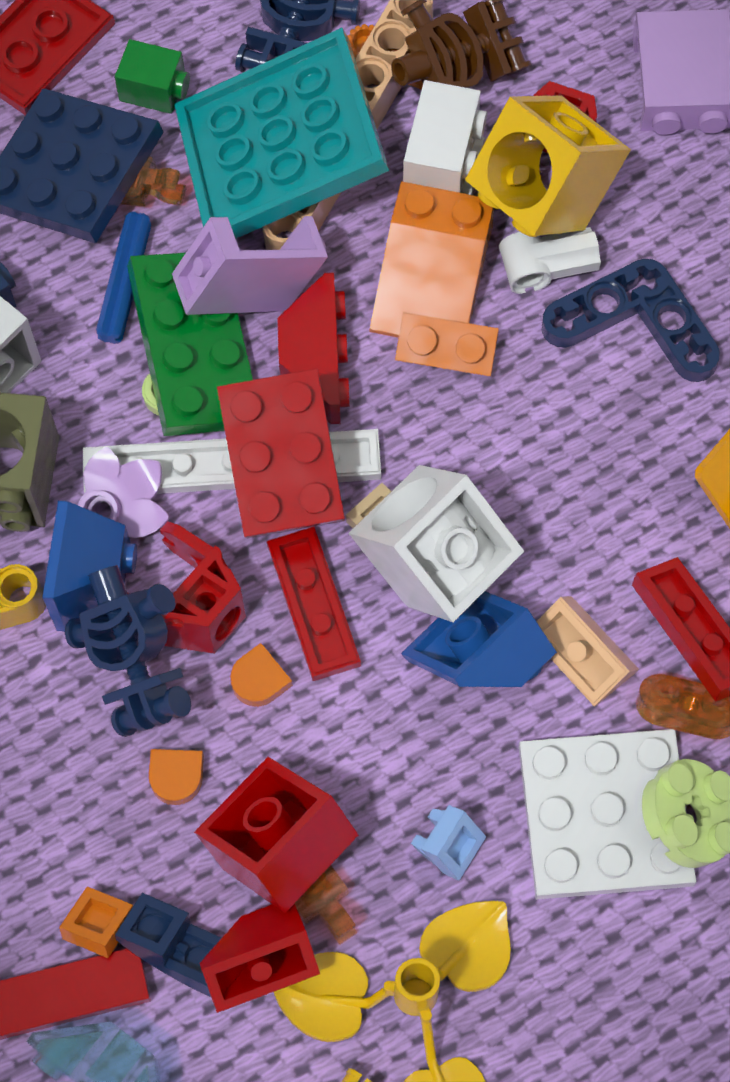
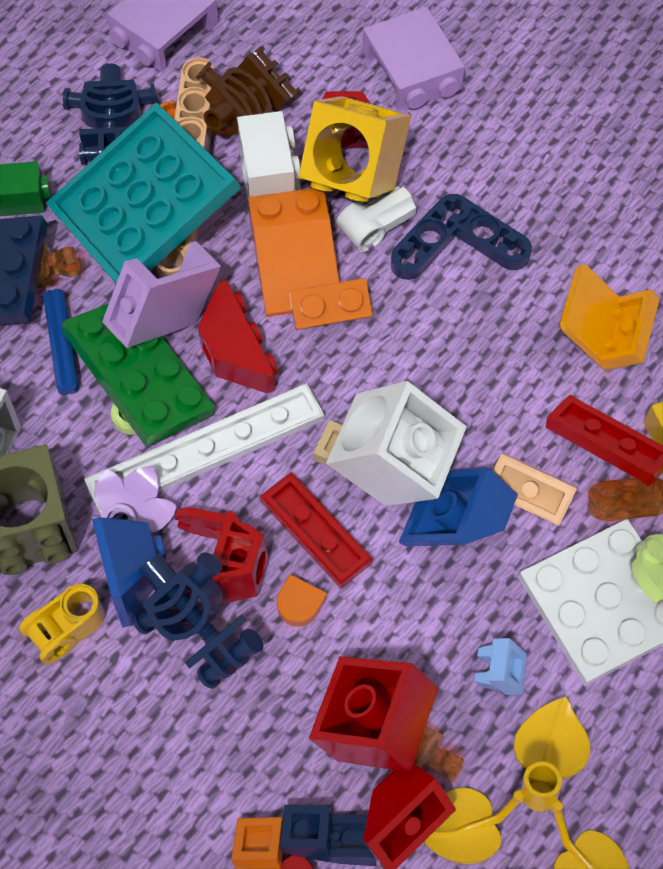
camera: 25 degrees left, 5 degrees down
(175, 774) = (267, 702): orange tile -> none
(281, 453) = (247, 423): red brick -> none

